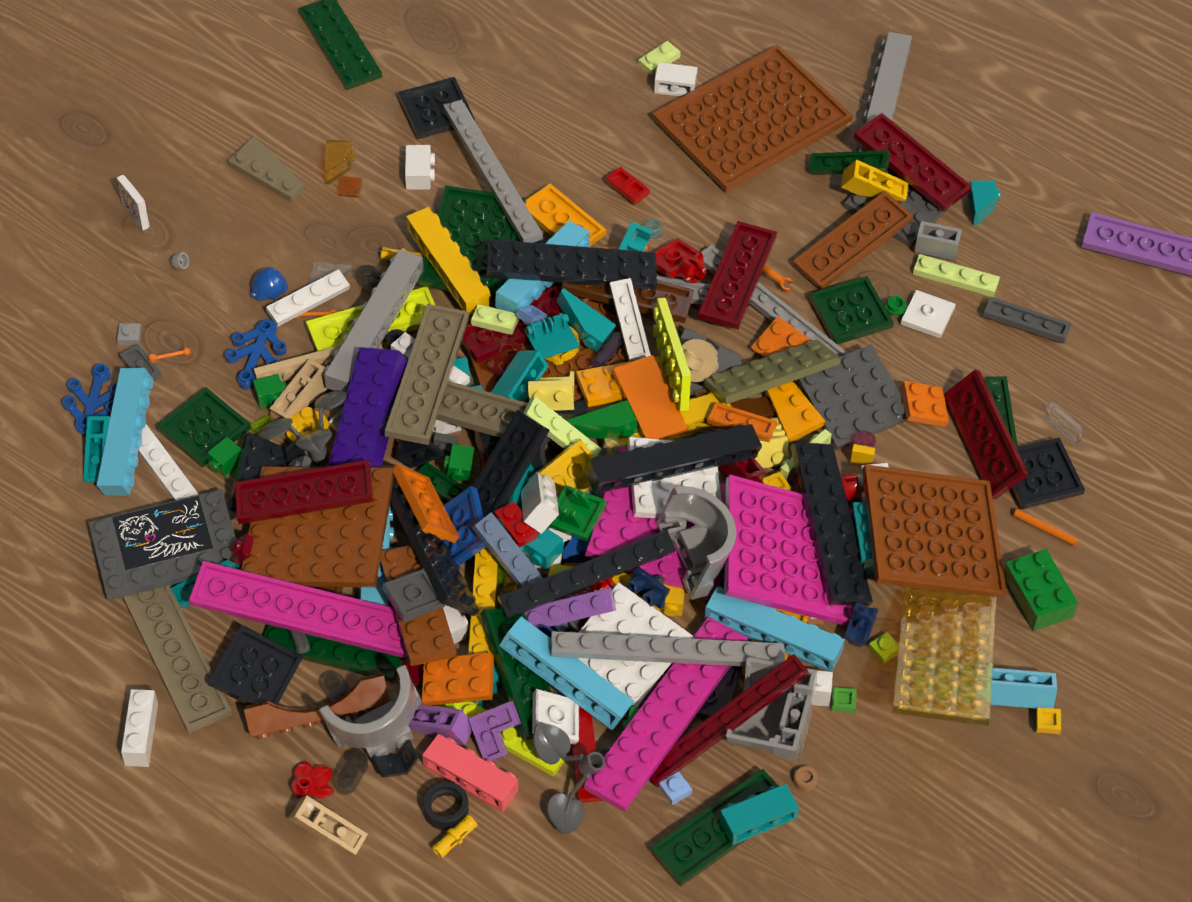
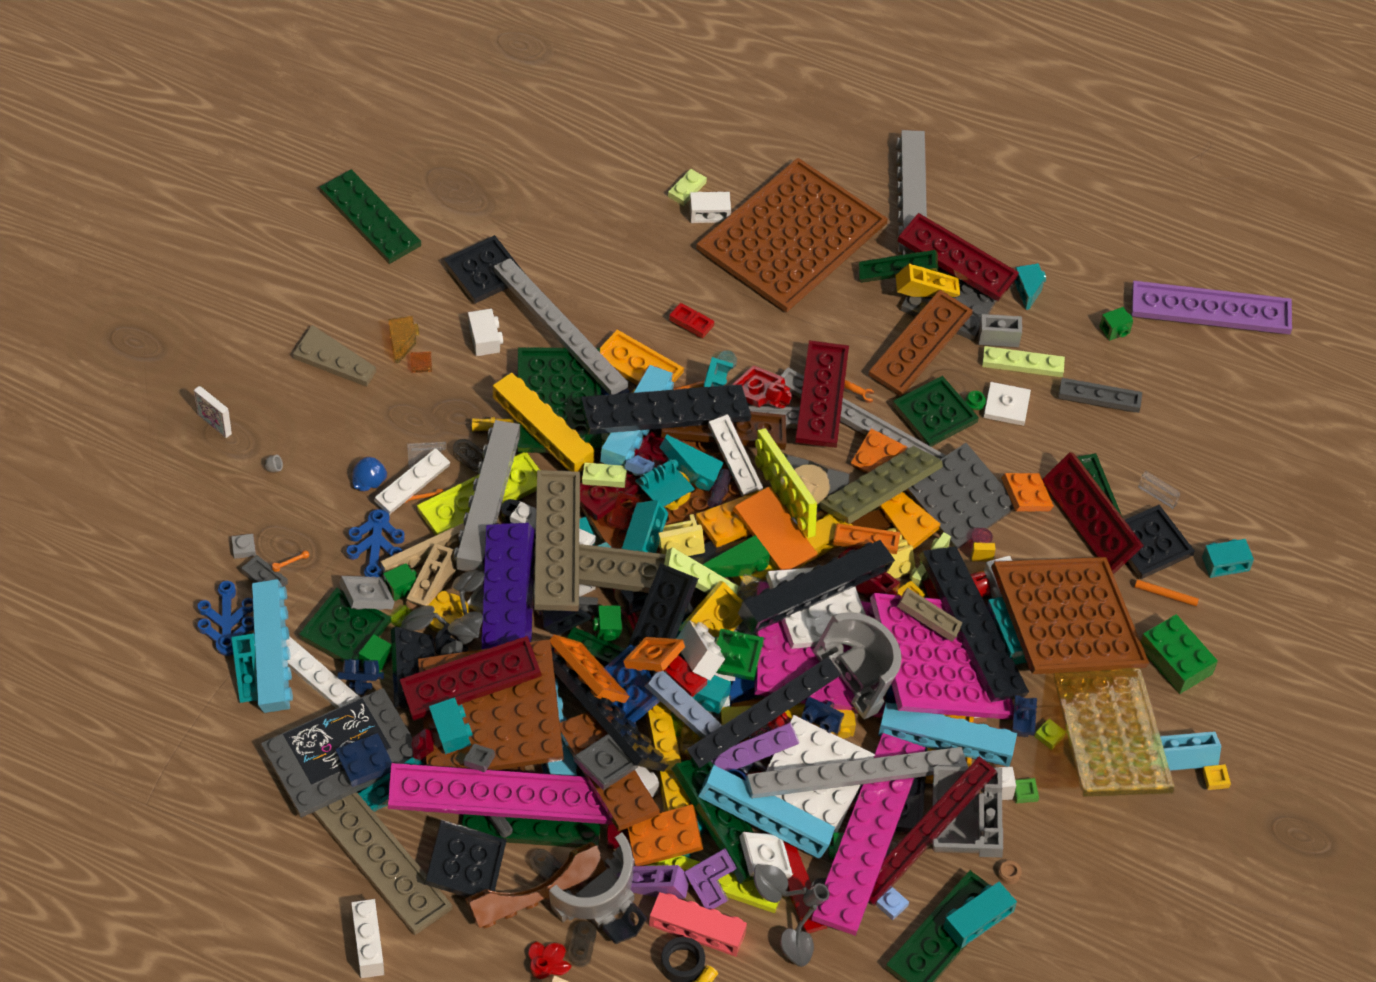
camera: 15 degrees left, 0 degrees up
(181, 554) = (364, 760): none -> dark blue plate
(213, 473) = (352, 672): none -> dark blue hips
(232, 396) = (366, 592): none -> light grey plate
(271, 534) = (450, 725): none -> teal brick
(290, 570) = (479, 758): none -> dark grey plate
(489, 497) = (654, 654): none -> orange plate
(783, 505) = (929, 614): none -> dark tan plate
(1062, 252) = (1116, 323): none -> green brick
(1118, 502) = (1227, 558): none -> teal brick

